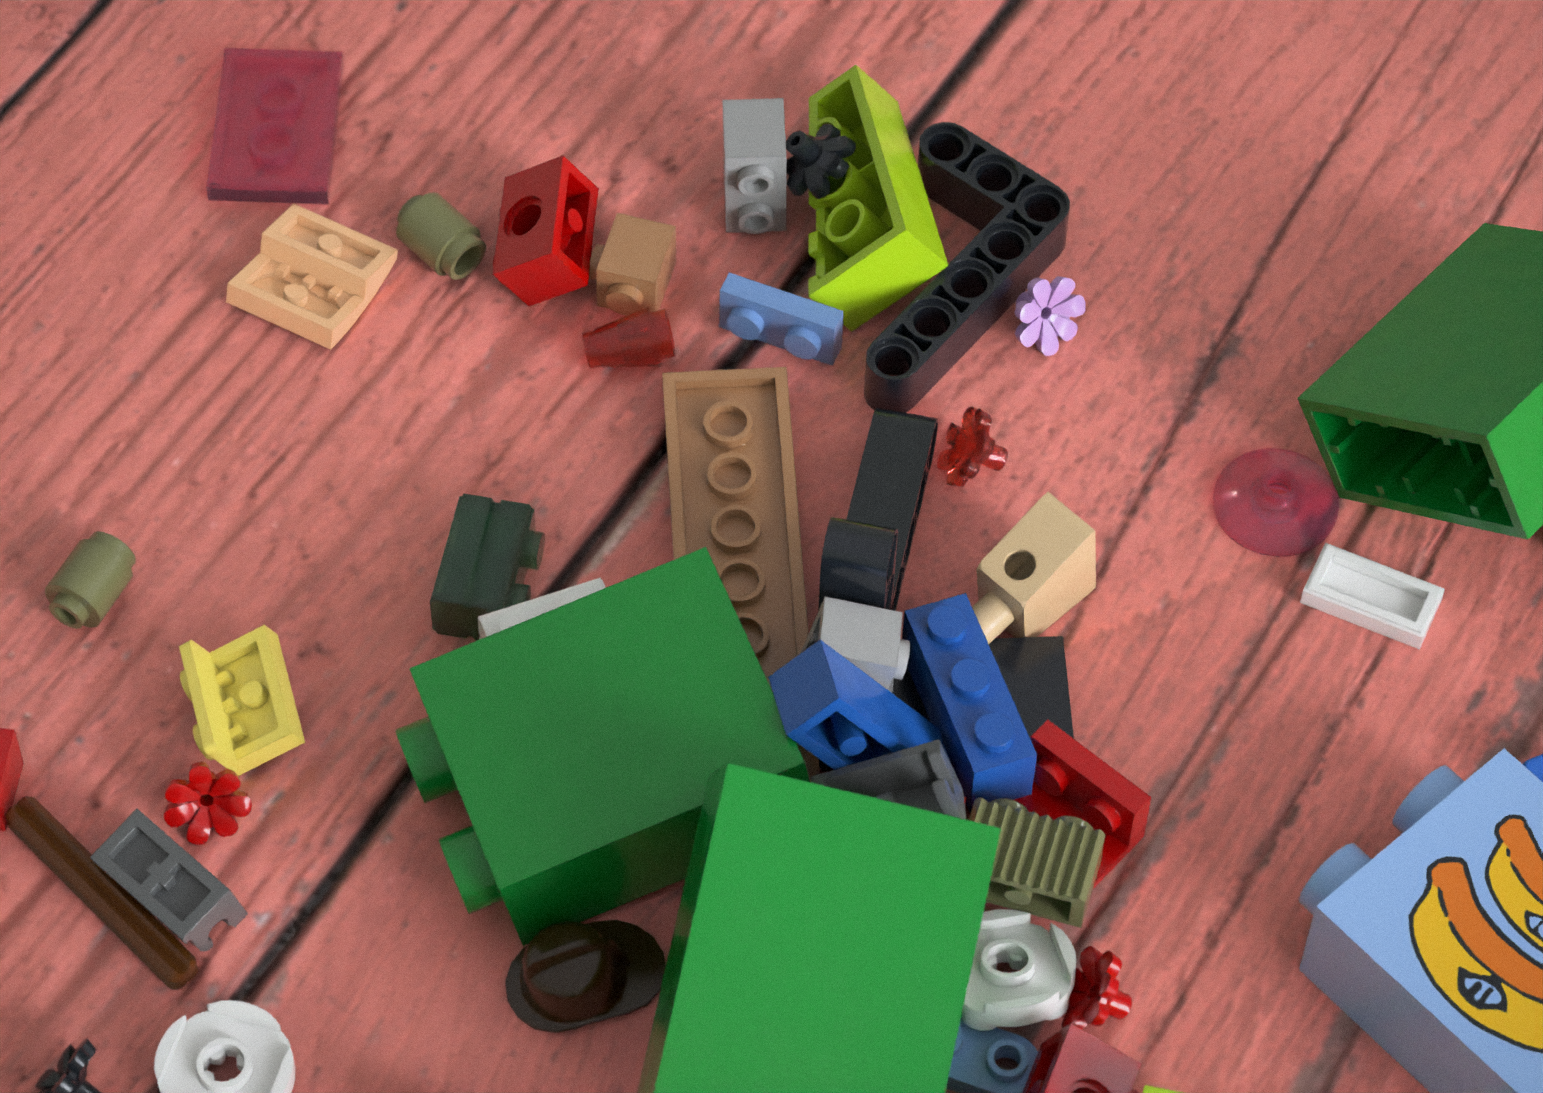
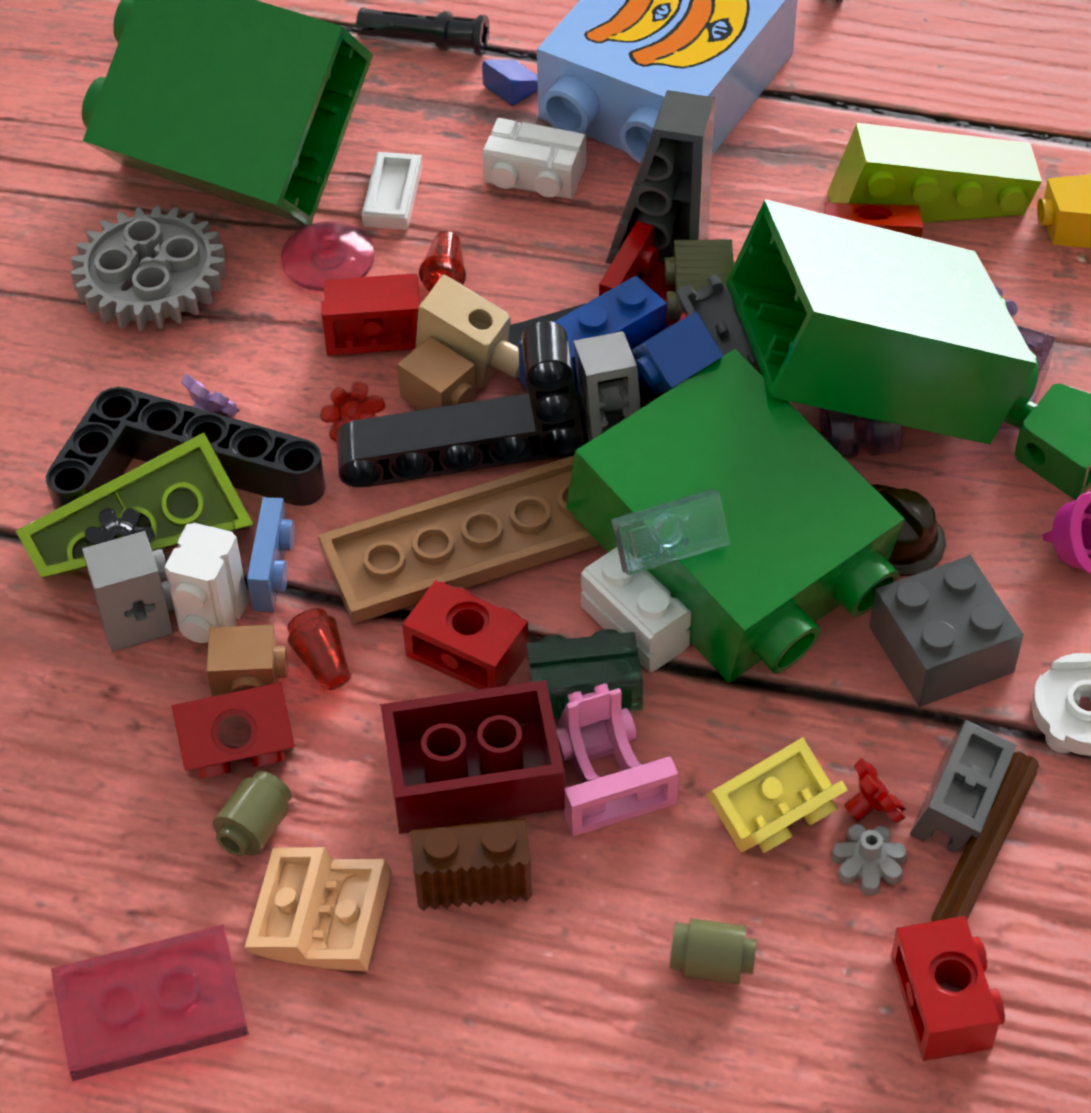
camera: 105 degrees left, 5 degrees down
(140, 777) = (870, 858): none -> light grey plant
(288, 399) = (471, 863): none -> reddish brown brick
(328, 549) = (596, 728): none -> bright pink tile
(383, 947) = (945, 630): none -> dark grey brick
(409, 425) = (473, 756): none -> dark red brick
(540, 600) = (670, 532): none -> clear light blue plate
(595, 444) = (438, 637): none -> red brick
(734, 228) = (206, 581): none -> white brick
(968, 530) = (436, 377): none -> medium nougat brick
(1141, 509) = (370, 314): none -> red bracket
(1169, 836) = (673, 176): none -> dark grey wedge
(1201, 608) = (443, 258): none -> clear red cone
(1284, 281) = (148, 267): none -> light grey gear
(1365, 759) = (534, 158): none -> white brick

